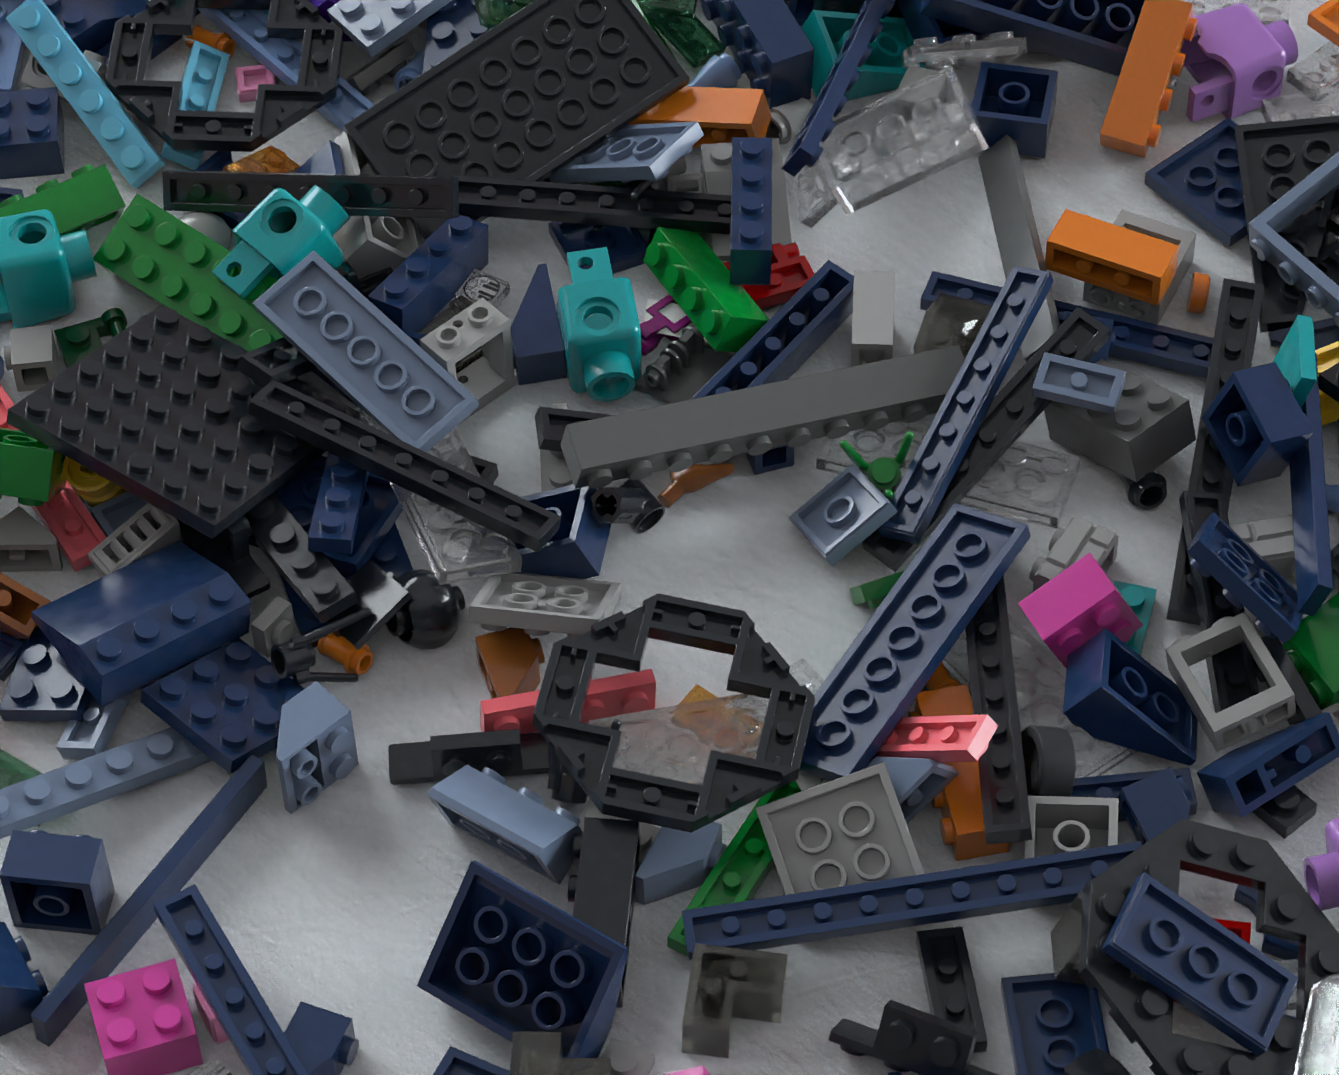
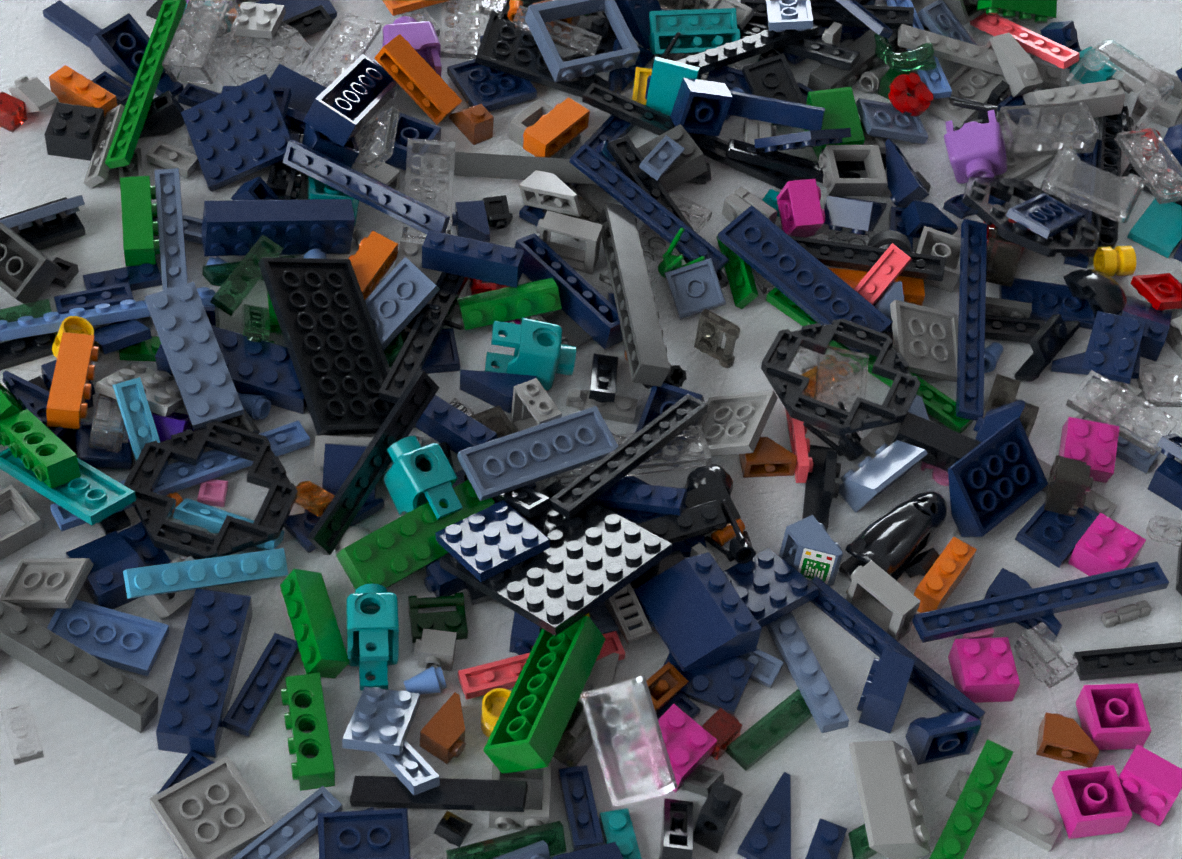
camera: 85 degrees left, 0 degrees up
(184, 339) = (492, 540): none -> plate
(233, 851) = (889, 593): none -> light grey window
(322, 946) = (944, 575): none -> orange brick
(346, 917) = (922, 563): none -> black plate
(362, 858) = (898, 535): none -> black piece
(659, 971) = (996, 419): none -> dark blue slope
(733, 555) = (710, 336): none -> clear smoke plate
(867, 968) = (992, 356): none -> medium blue cone
(881, 225) = (471, 220): none -> dark blue slope
(919, 248) = (497, 211): none -> black bracket
(956, 279) = (549, 193): none -> light grey slope
(993, 995) = (1007, 308): none -> dark grey plate
(1112, 179) = (474, 123): none -> dark orange slope

